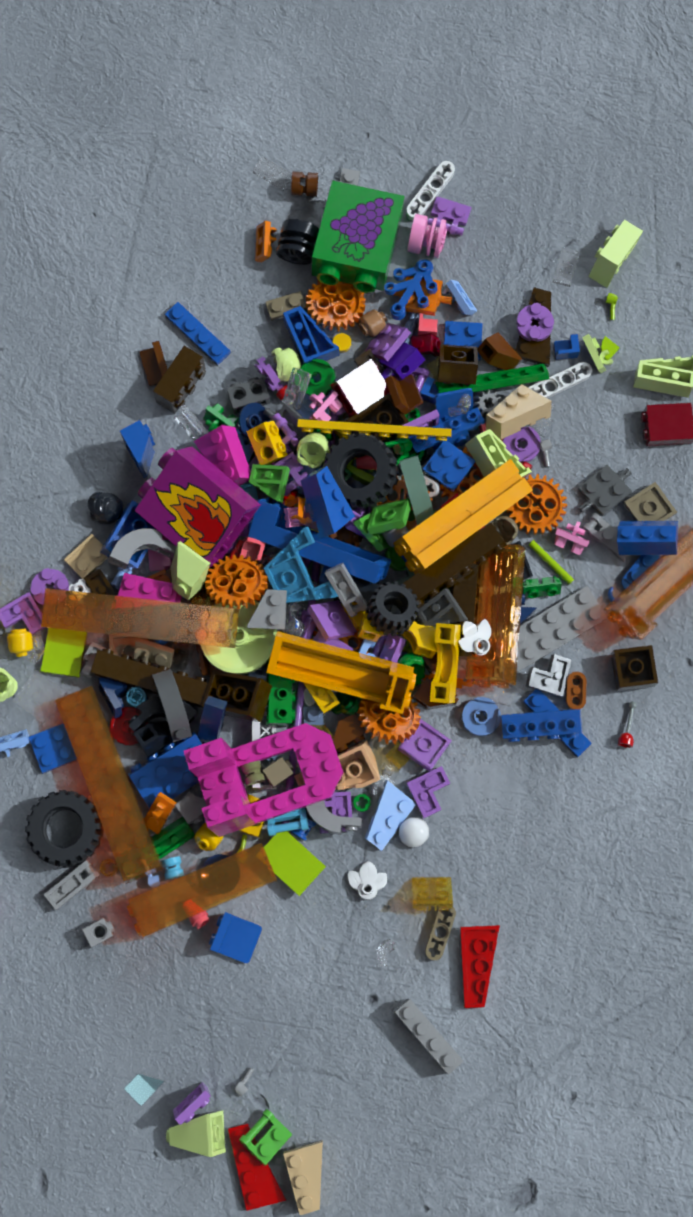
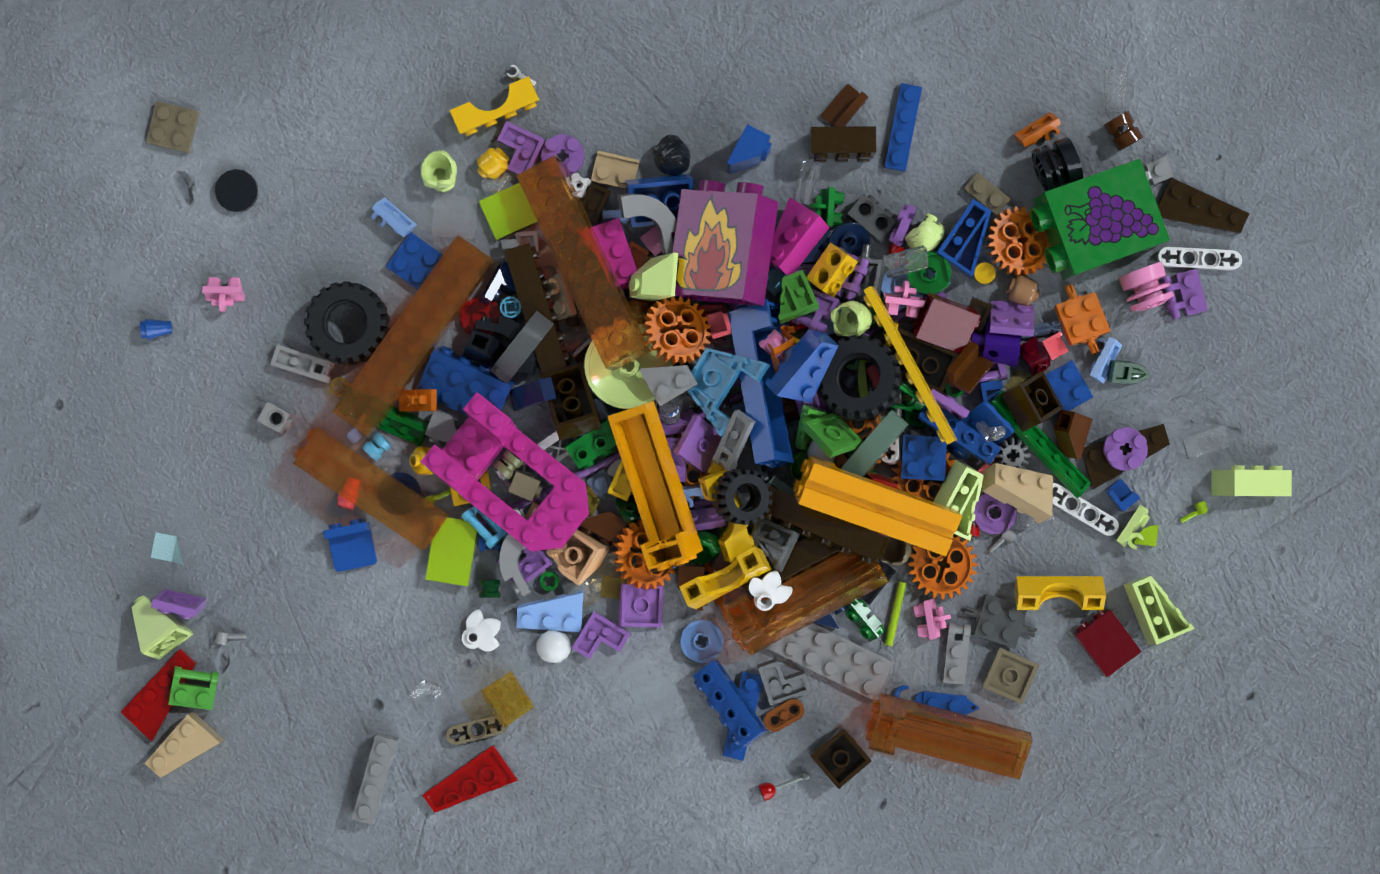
camera: 65 degrees right, 10 degrees up
(338, 851) = (489, 589): none -> dark green wheel
(395, 169) = (1197, 208): none -> dark brown wing
(411, 286) = (1084, 305): blue plant -> none
(479, 289) = (1126, 372): none -> plate
(621, 415) = (1085, 591): none -> yellow arch
(647, 537) = (976, 692): blue slope -> none

